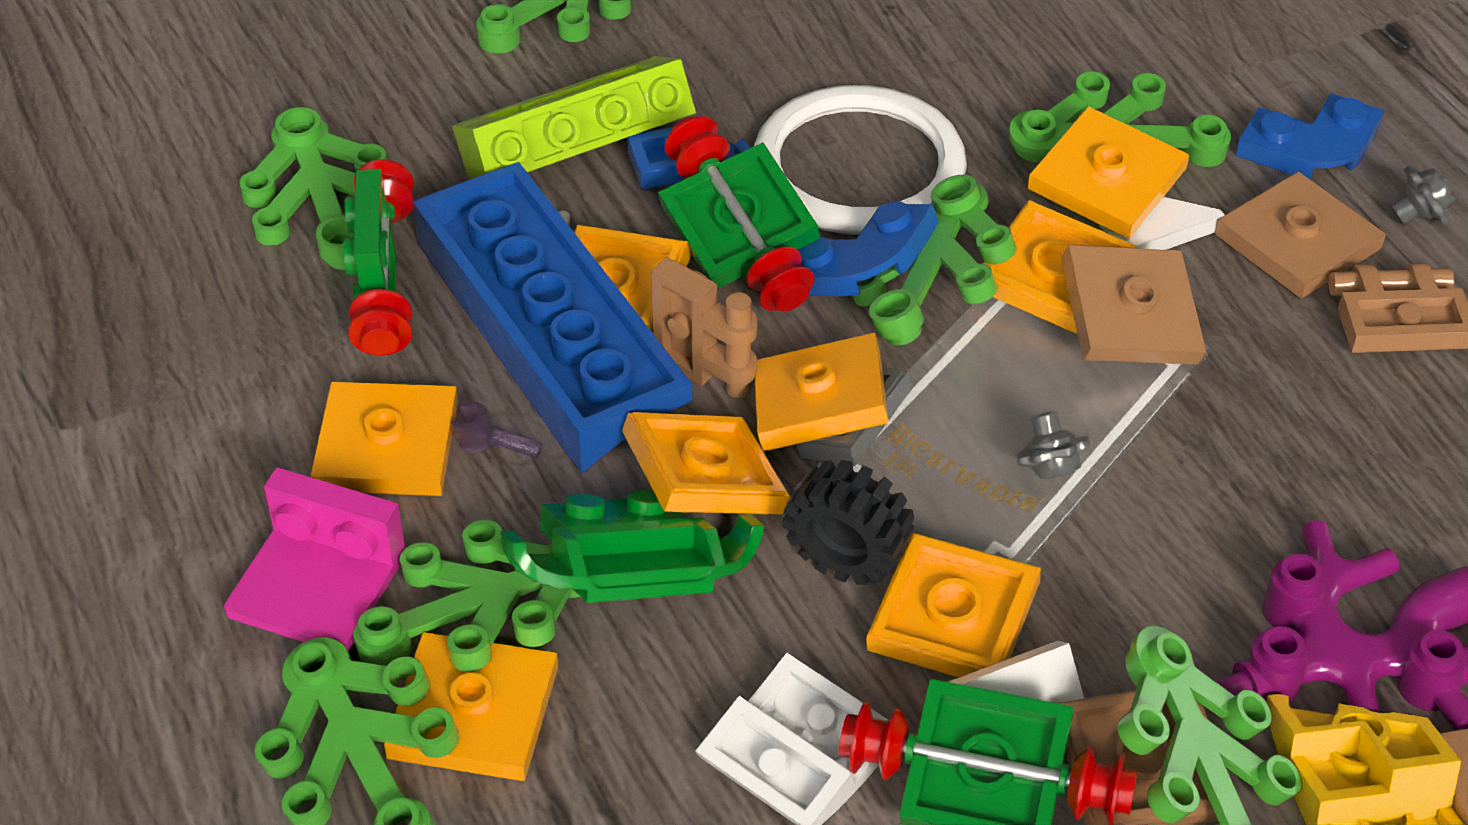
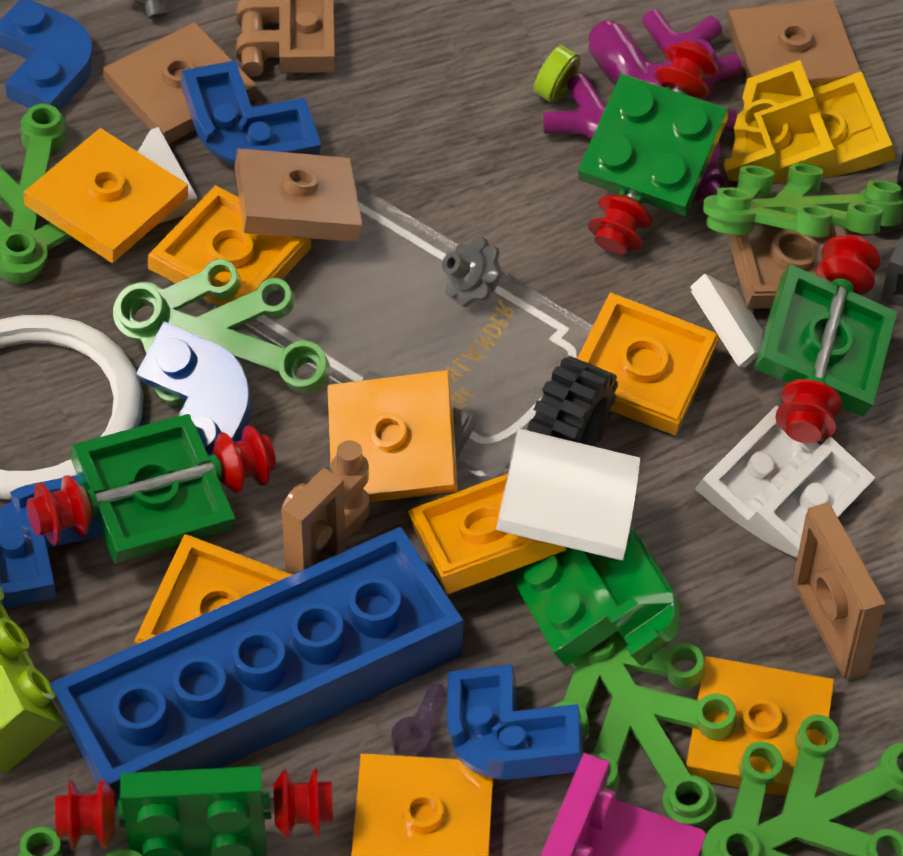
camera: 90 degrees left, 5 degrees up
(447, 480) = (506, 742): none -> blue plate
(608, 745) = (838, 592): none -> medium nougat plate
(715, 494) = (569, 494): none -> white slope
(1228, 269) = (229, 122): none -> blue plate
(1262, 593) = (652, 145): none -> green plate
(1392, 528) = (556, 72): none -> lime tile

